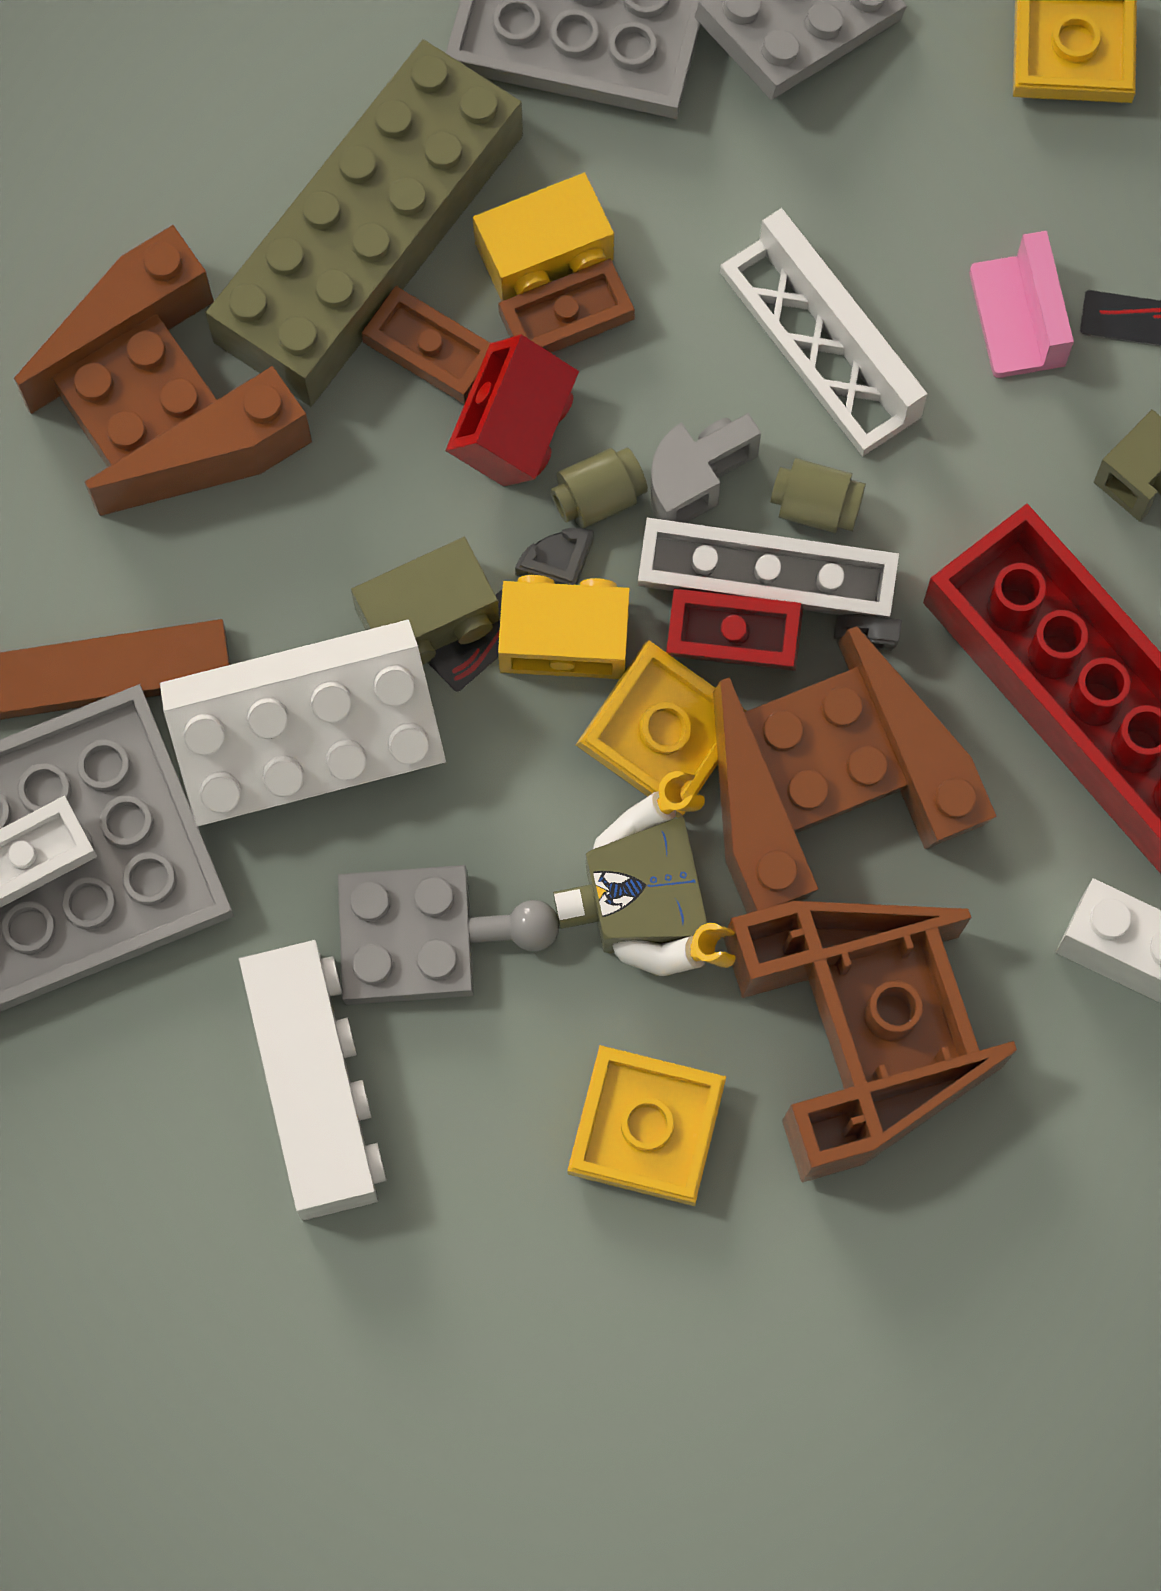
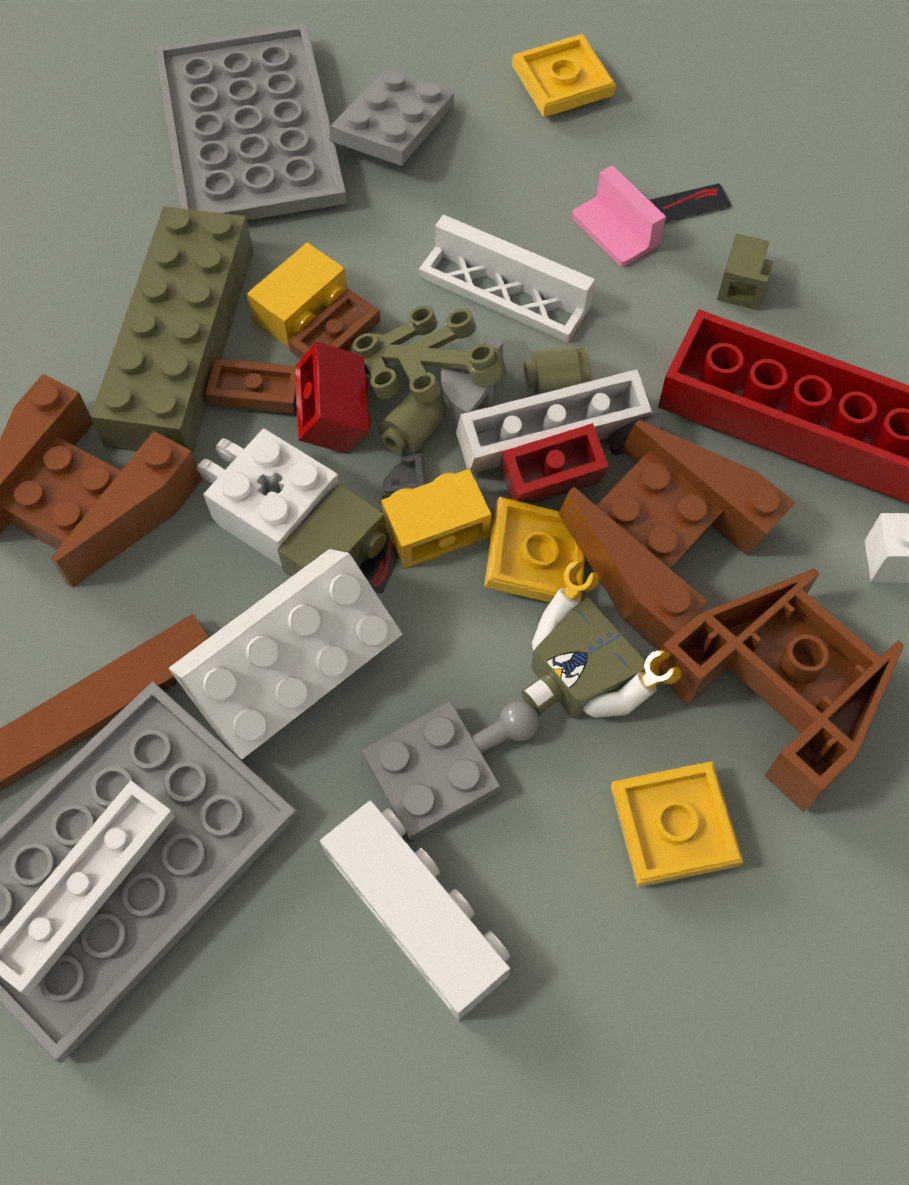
camera: 25 degrees left, 10 degrees down
(375, 477) = (265, 490): none -> white hinge
(607, 365) = (482, 361): none -> olive plant

